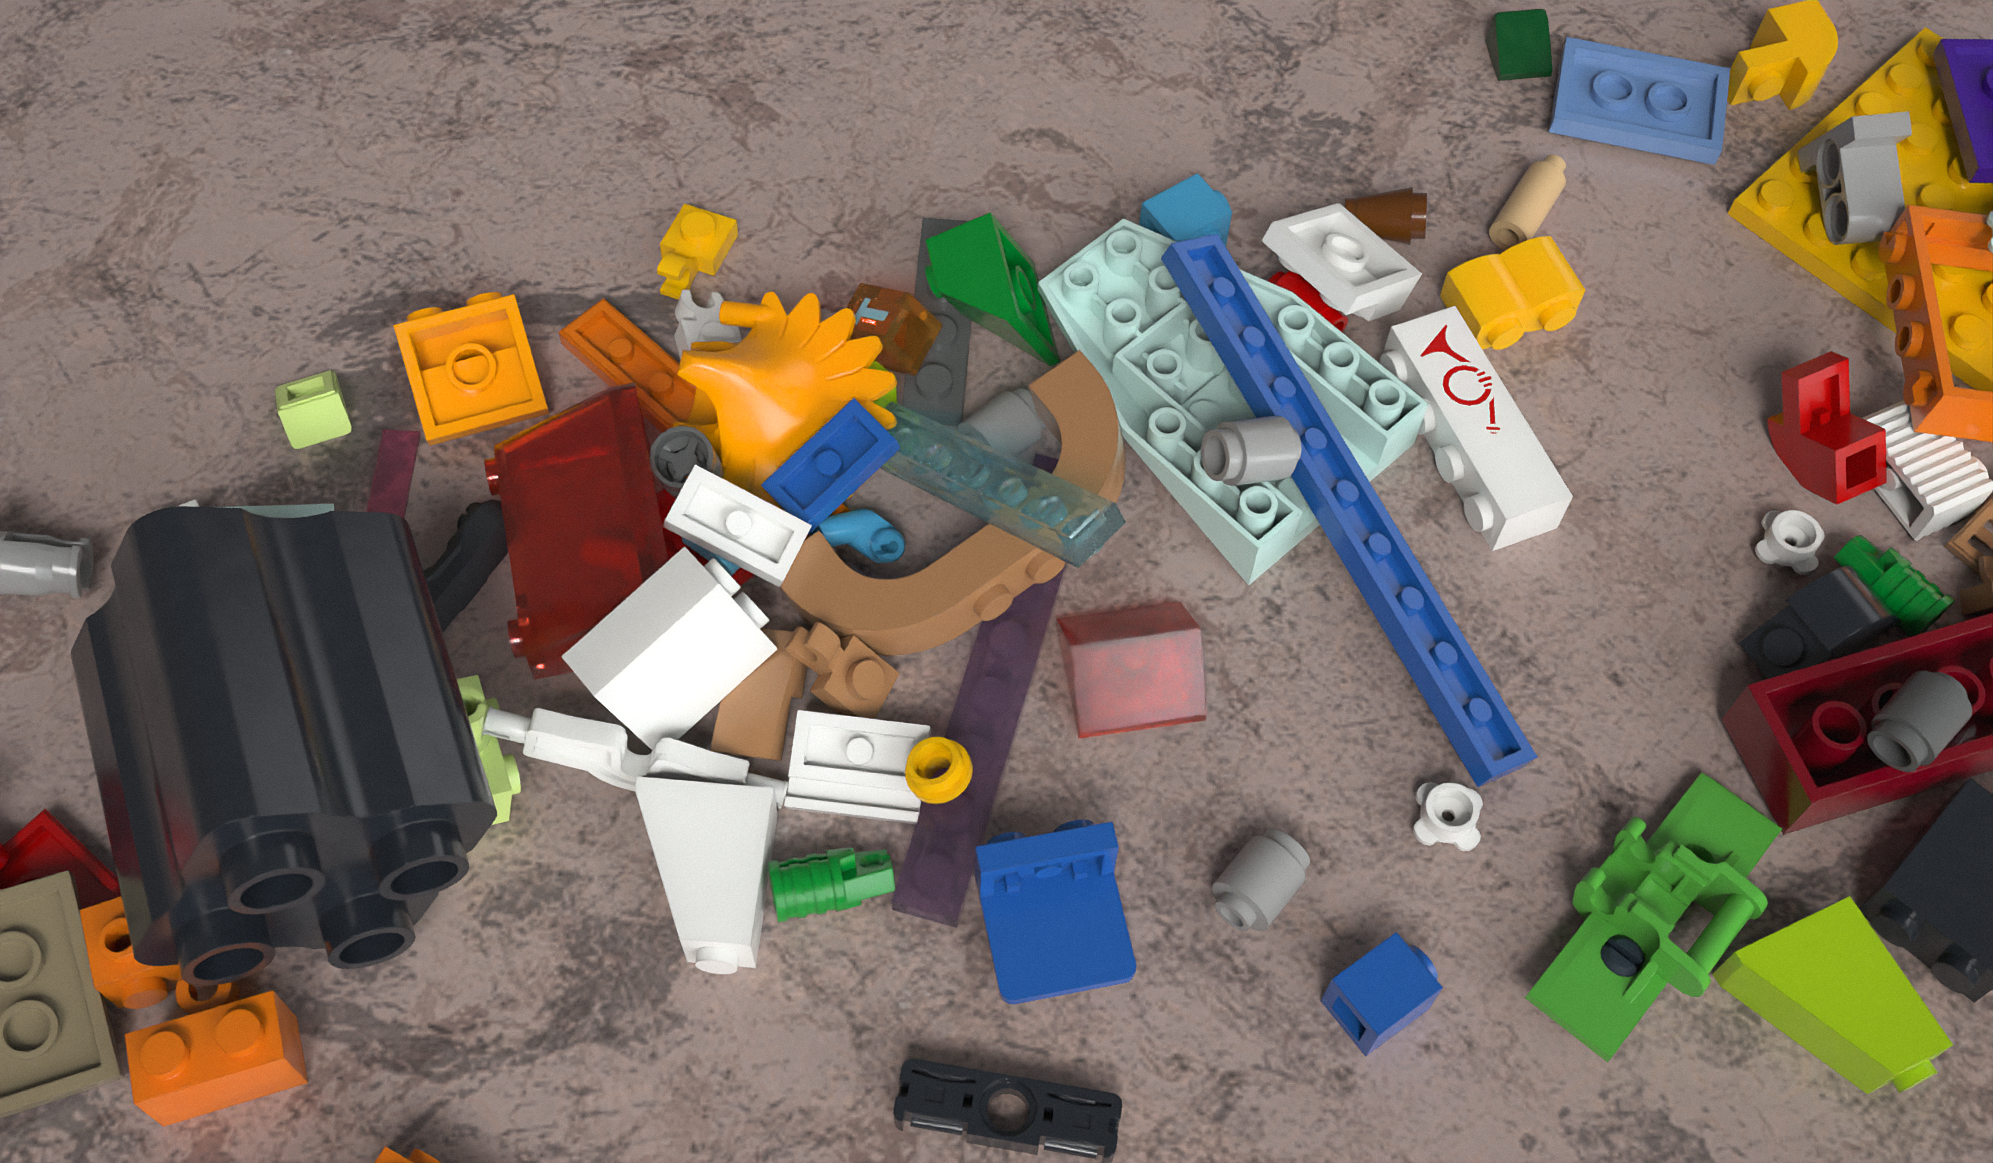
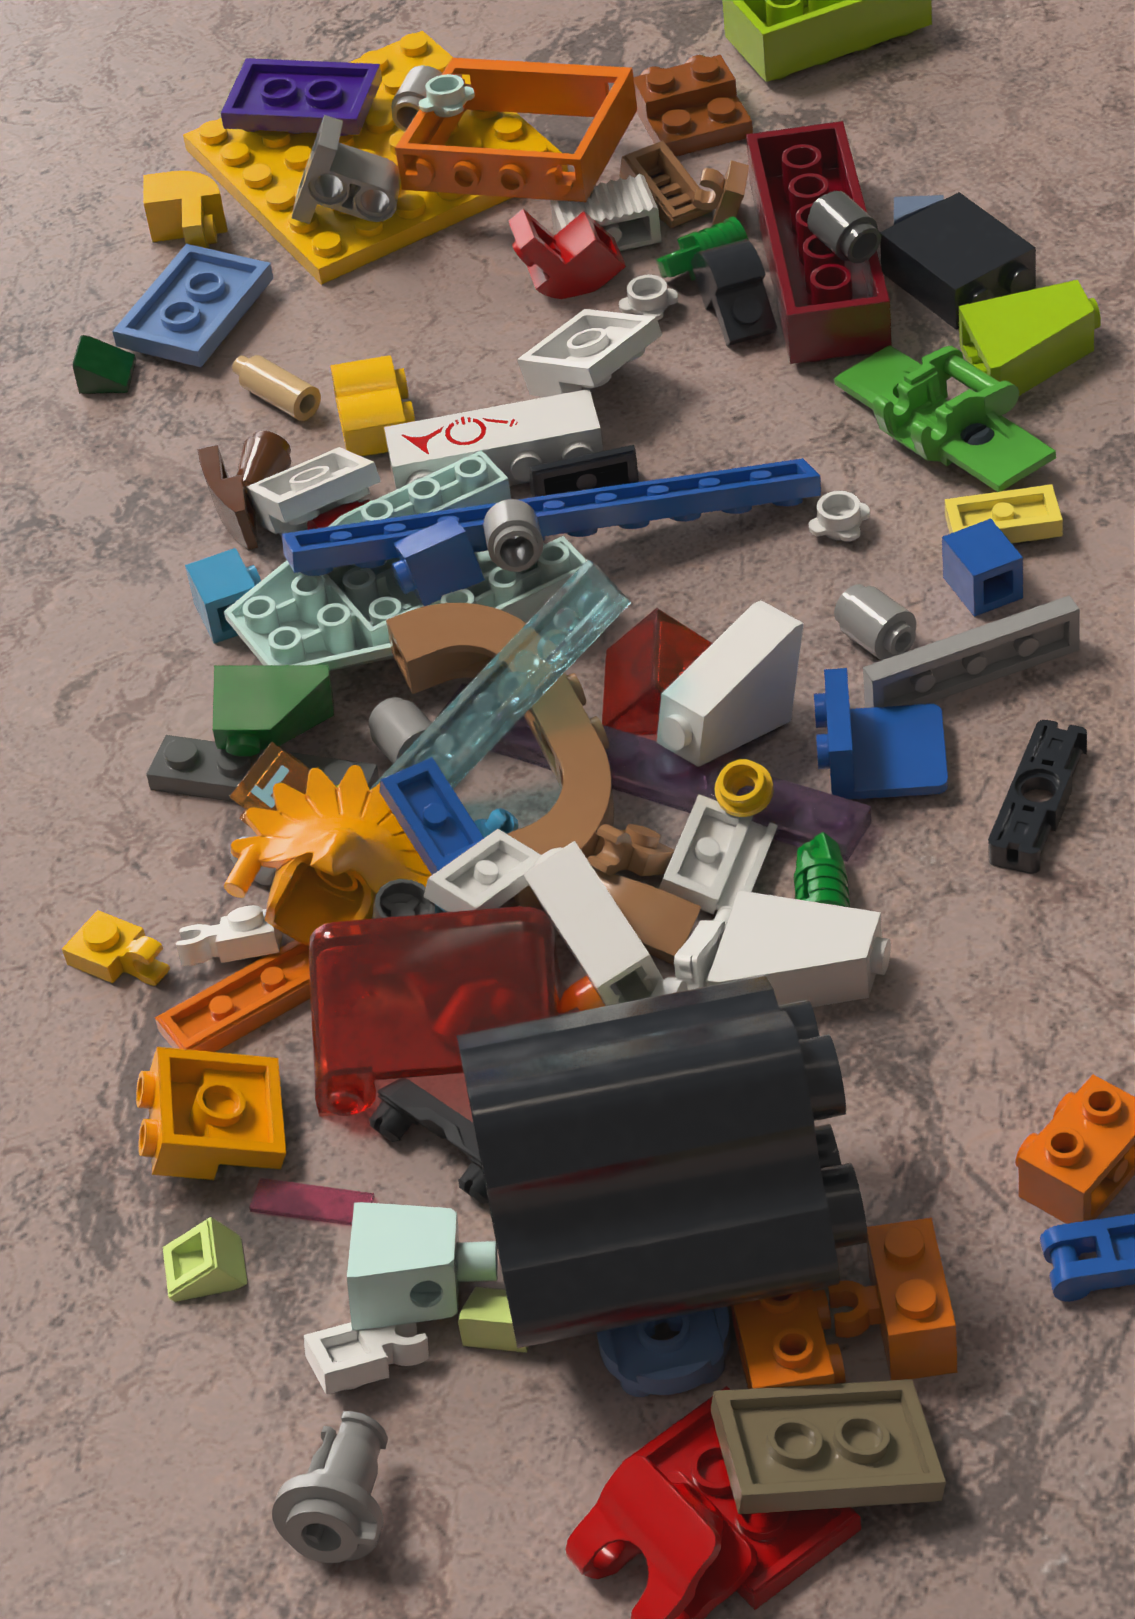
camera: 70 degrees left, 15 degrees down
(1079, 728) = (734, 687): none -> white slope
(1210, 386) = (436, 562): none -> blue brick
(1235, 1024) = (974, 656): none -> light grey plate
(1346, 178) = (229, 498): none -> reddish brown slope
(1448, 530) = (585, 472): none -> black slope
(1487, 1012) = (1018, 513): none -> light yellow plate
(1646, 484) = (586, 351): none -> white plate

